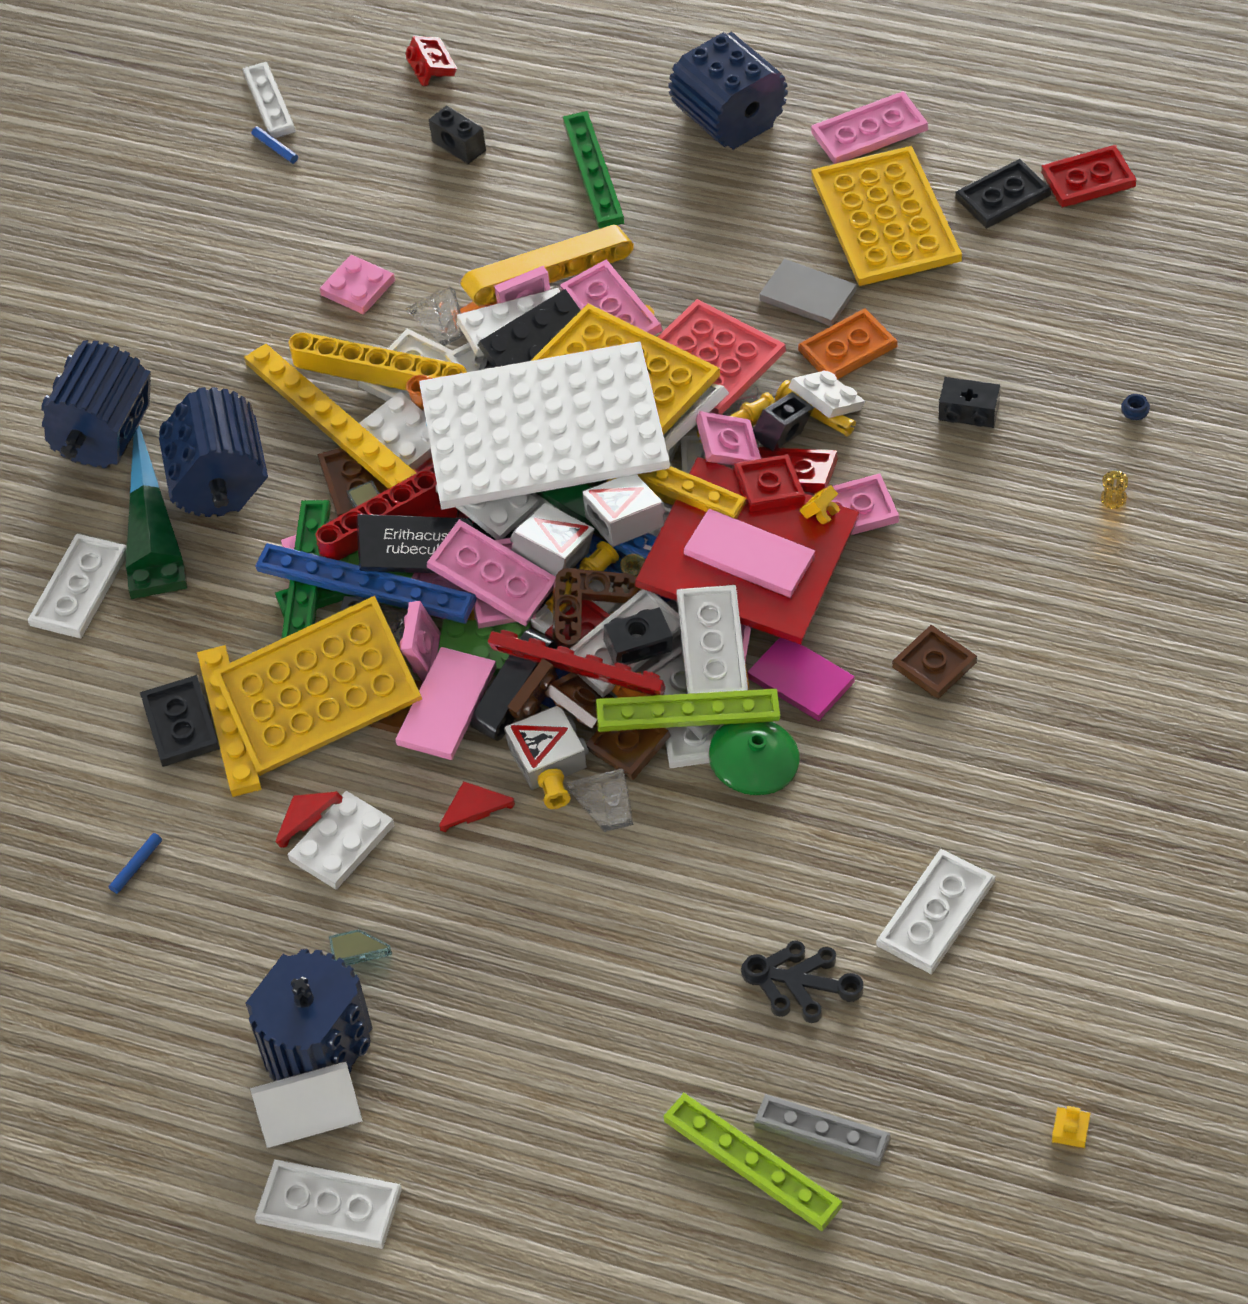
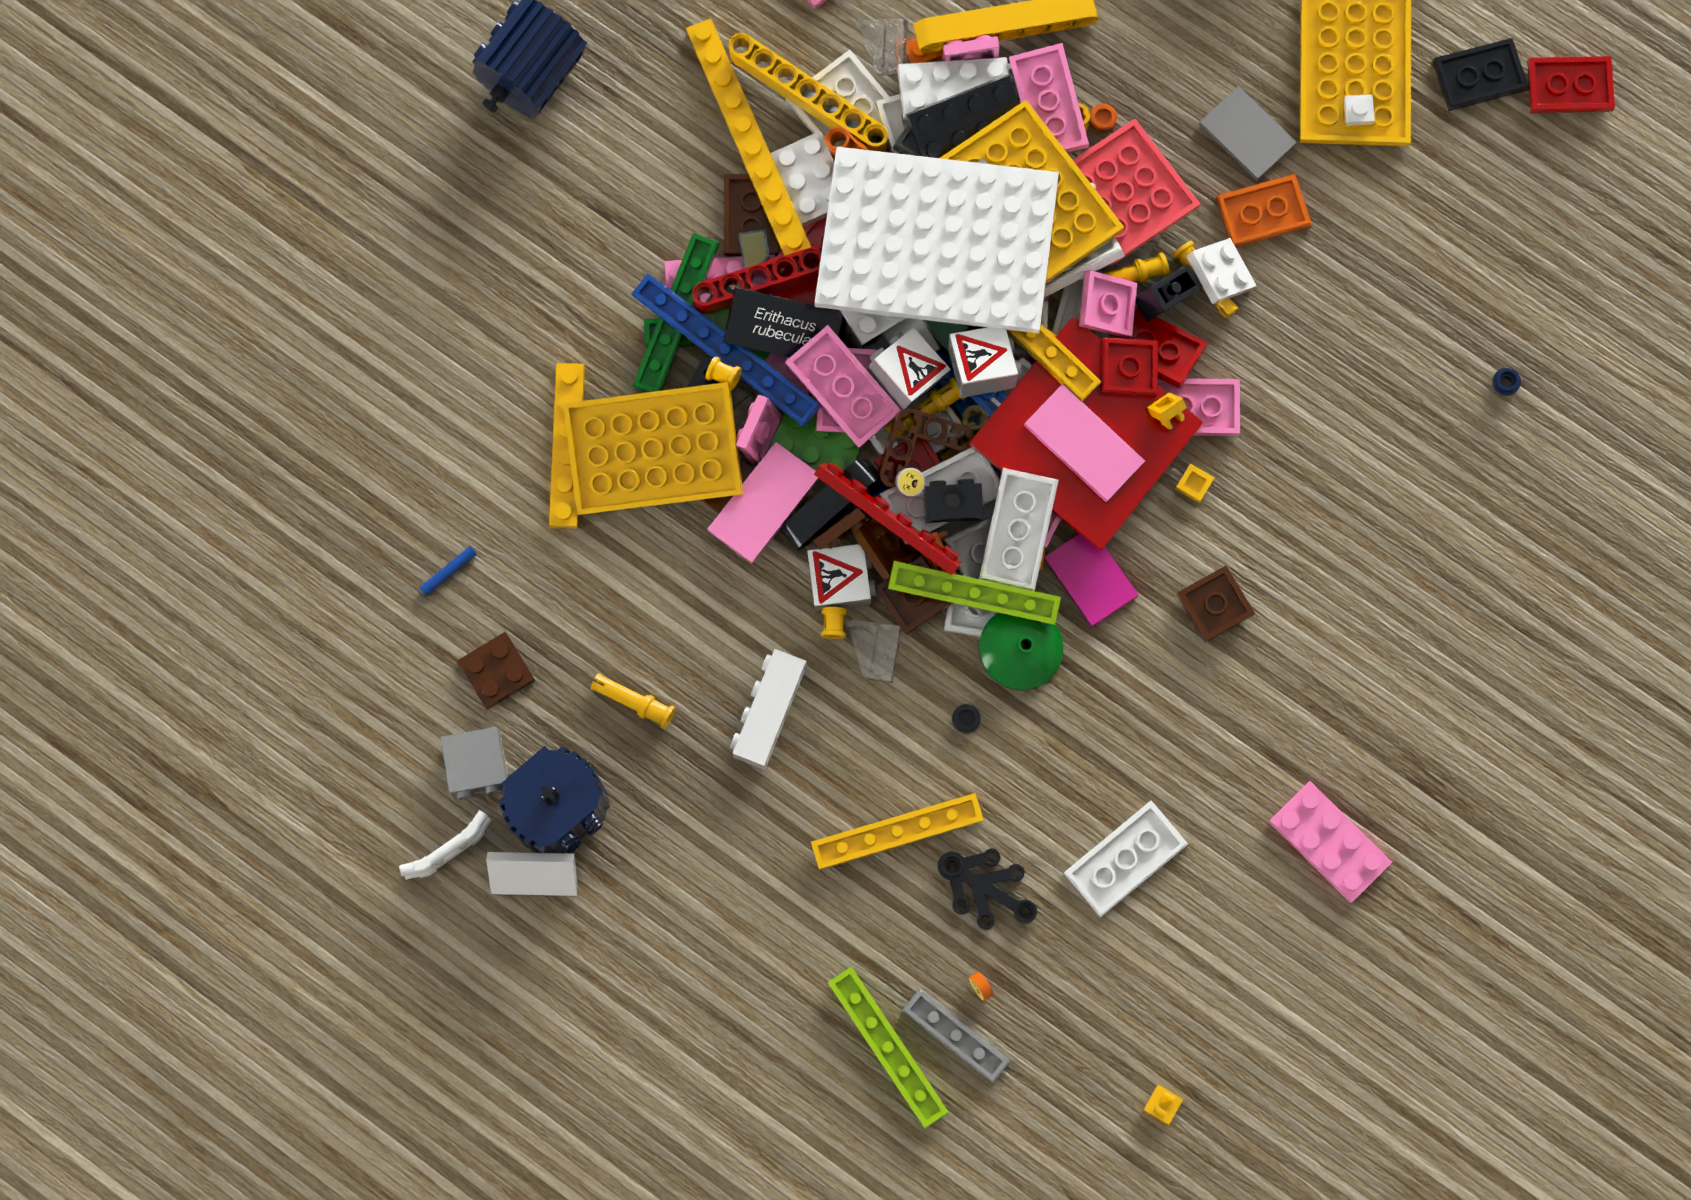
camera: 15 degrees right, 25 degrees up
(78, 586) = (467, 246): white tile -> none
(152, 551) = (543, 234): dark green plate -> none
(179, 720) = (522, 433): black plate -> none
(212, 453) = (623, 154): dark blue piece -> none
(212, 937) = (496, 670): none -> reddish brown plate
(213, 1023) = (474, 762): none -> light grey piece
(232, 1085) = (430, 864): none -> white piece
(303, 813) = (607, 573): red tile -> none
(328, 1204) = (528, 963): white tile -> none
(341, 840) = (633, 608): white plate -> none
(358, 947) = (616, 724): olive tile -> none
(362, 592) = (723, 373): none -> yellow bush
(381, 920) = (645, 706): none -> yellow pin
(473, 804) = (758, 611): red tile -> none
(513, 883) = (769, 709): none -> white brick
(588, 632) = (910, 482): none -> light yellow tile
(666, 315) = (1103, 118): none -> orange tile
(686, 955) = (897, 831): none -> yellow plate
(721, 835) = (966, 719): none -> black tile
(830, 1070) = (981, 986): none -> orange tile
(872, 569) = (1194, 483): none -> yellow plate
(903, 241) = (1359, 110): none -> white plate
(969, 402) = (1346, 311): black brick -> none
(1109, 489) = (1457, 472): clear yellow bush -> none
(1139, 832) = (1330, 842): none -> bright pink plate

